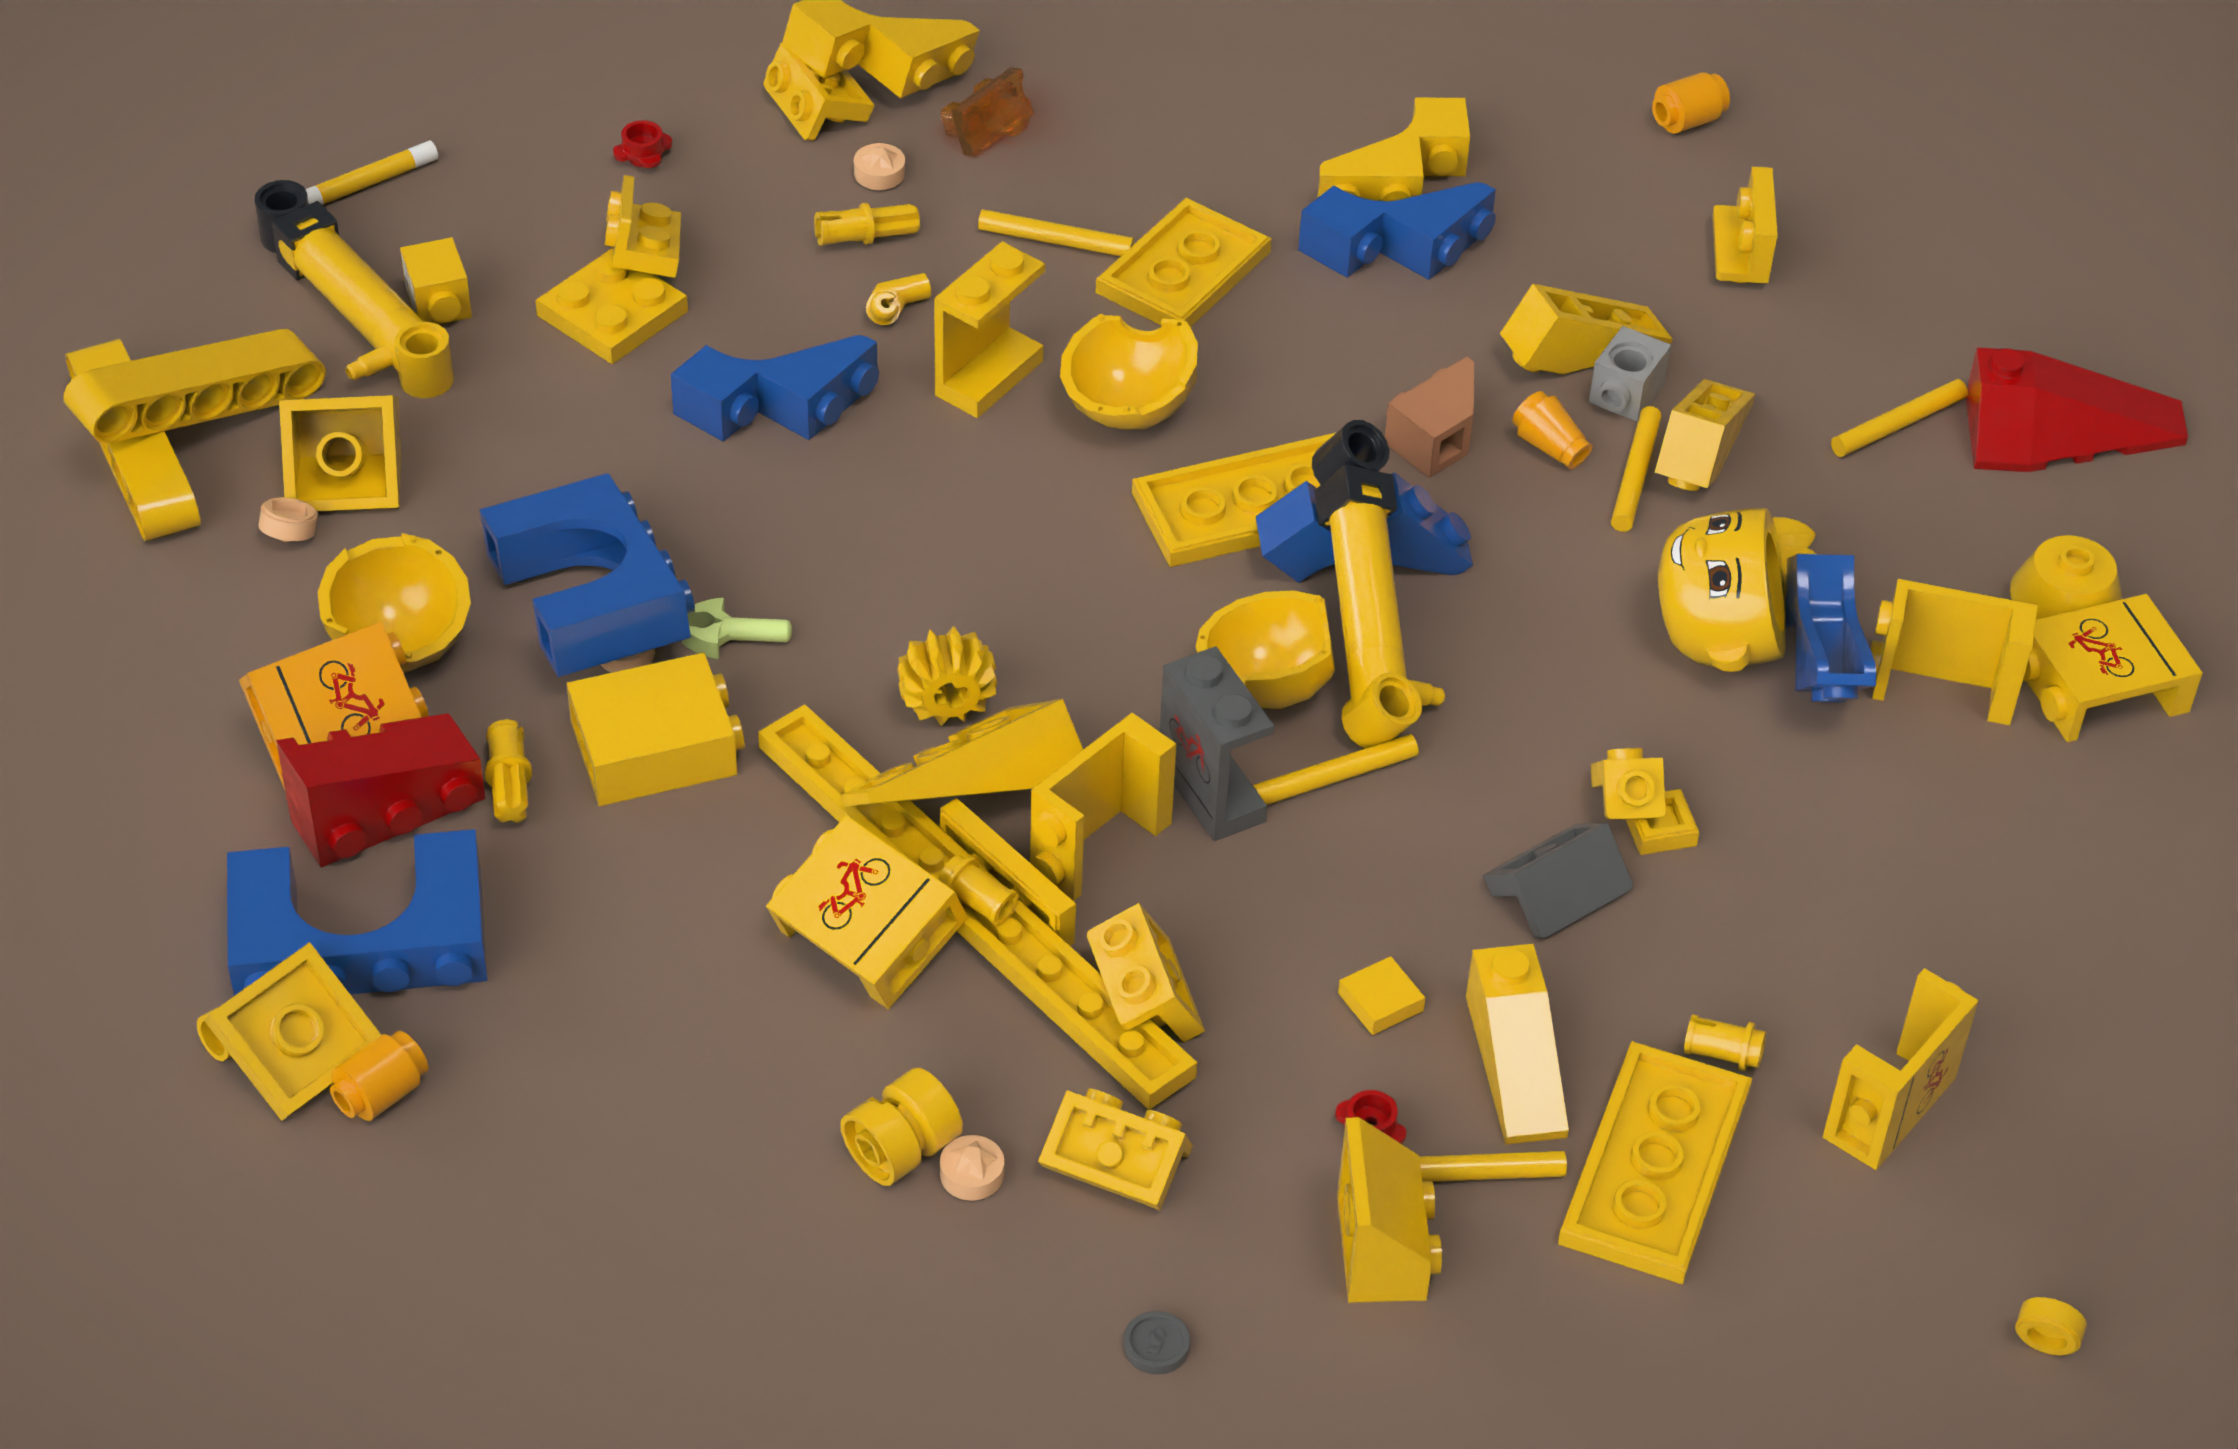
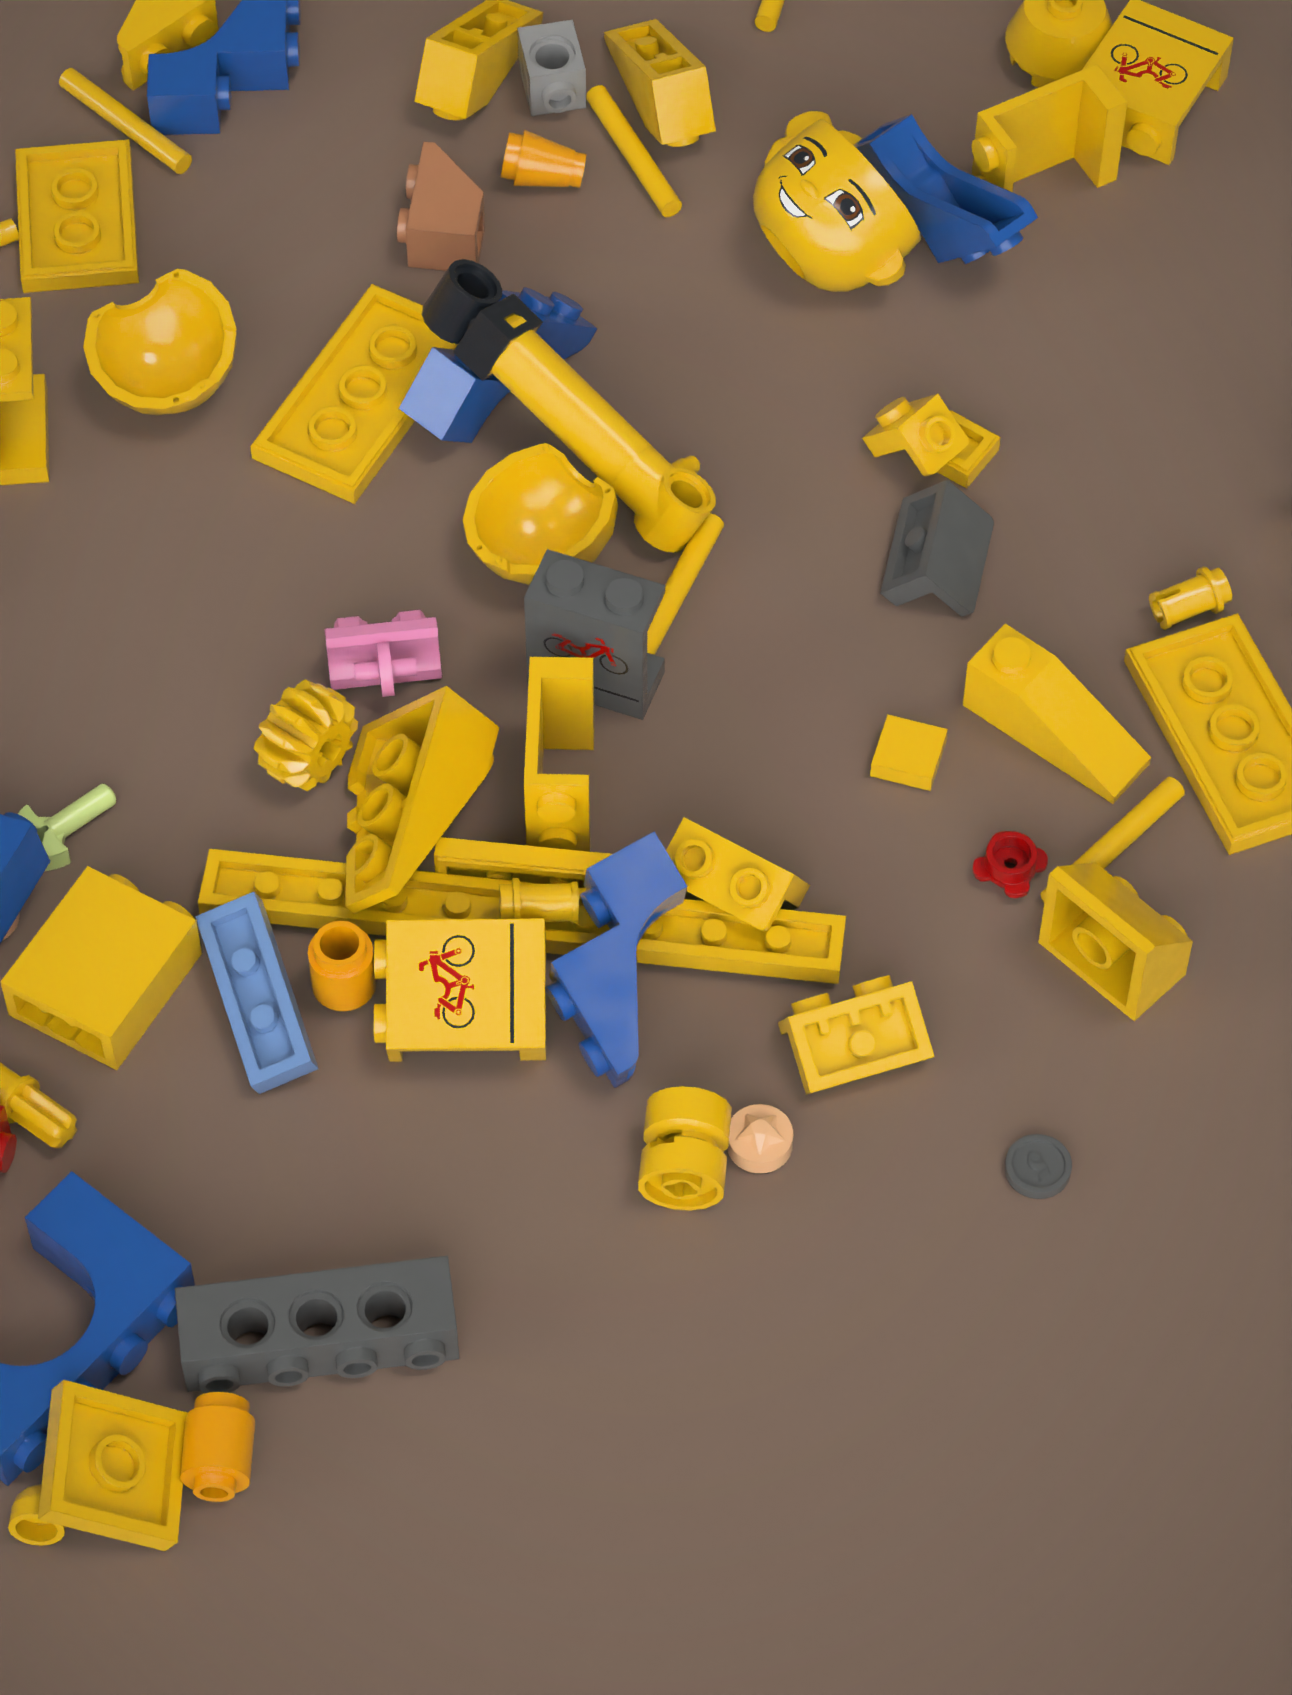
camera: 40 degrees left, 10 degrees up
(530, 1051) = (286, 1305): none -> dark grey brick
(730, 815) = (256, 993): none -> medium blue plate
(796, 828) = (342, 966): none -> light orange brick
(967, 967) = (600, 977): none -> arch
(1068, 666) = (383, 652): none -> bright pink hips
(1285, 228) = (125, 120): none -> yellow bar

